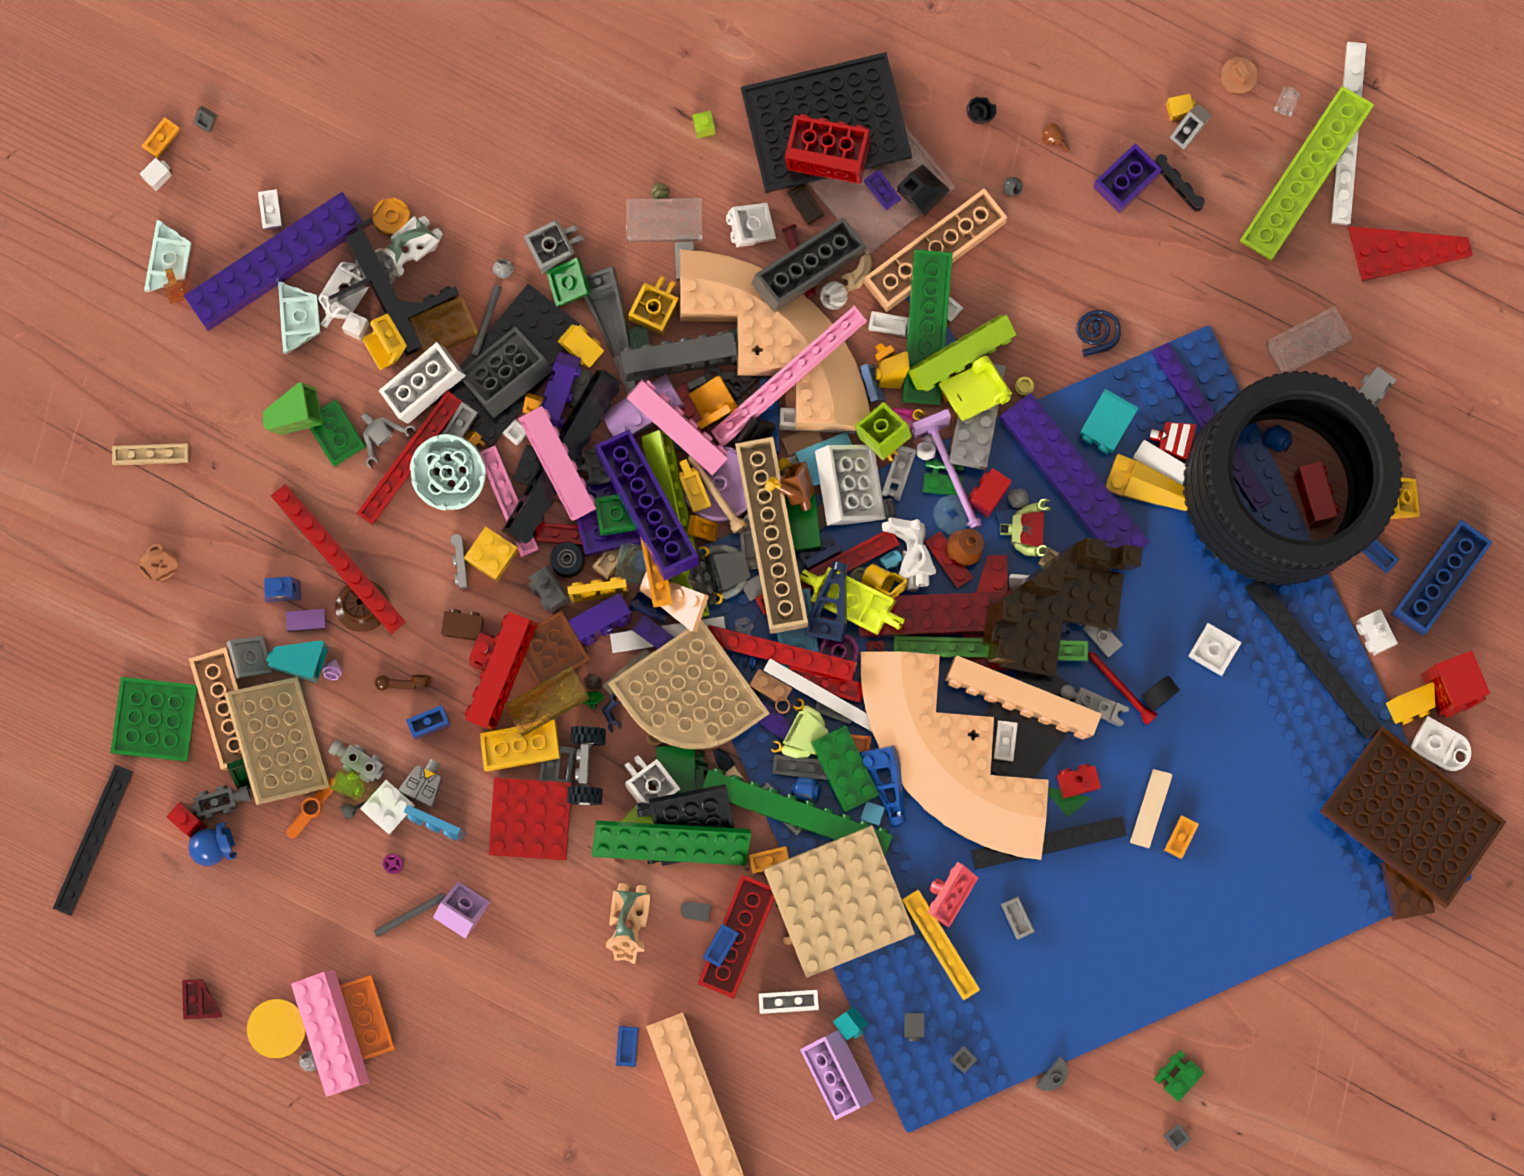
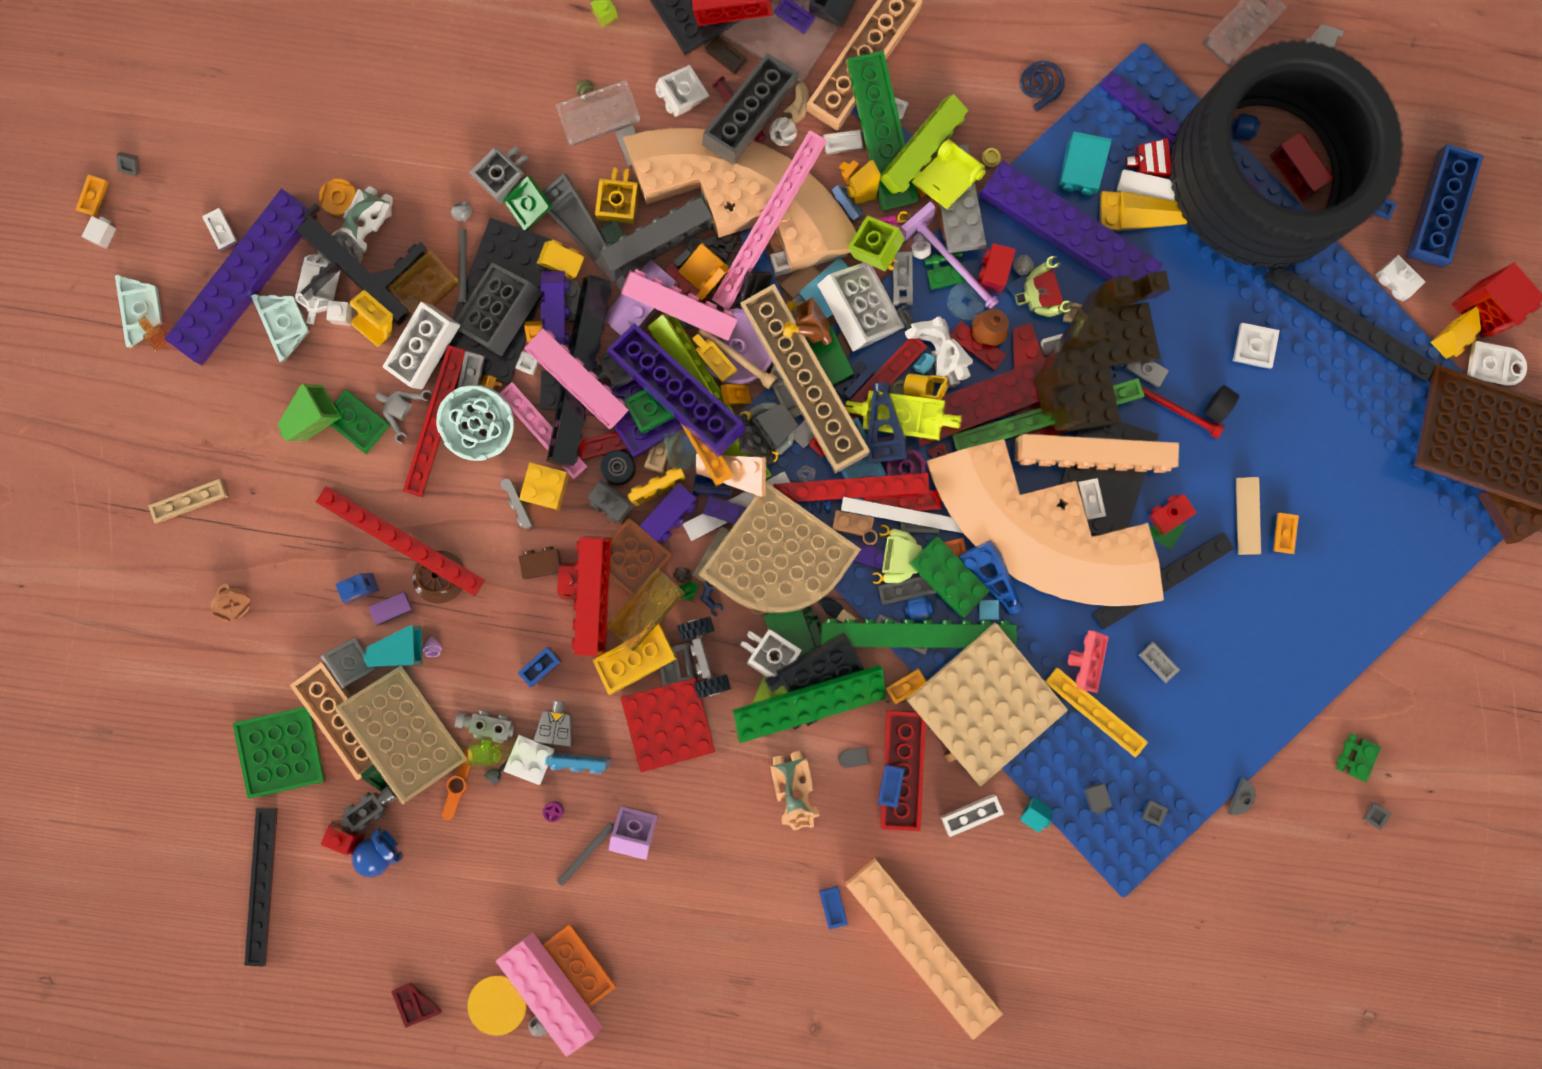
camera: 15 degrees left, 5 degrees up
(383, 683) = (518, 629): reddish brown piece -> none
(837, 1074) = (1040, 867): lavender slope -> none
(1095, 702) = (1162, 433): light grey plate -> none

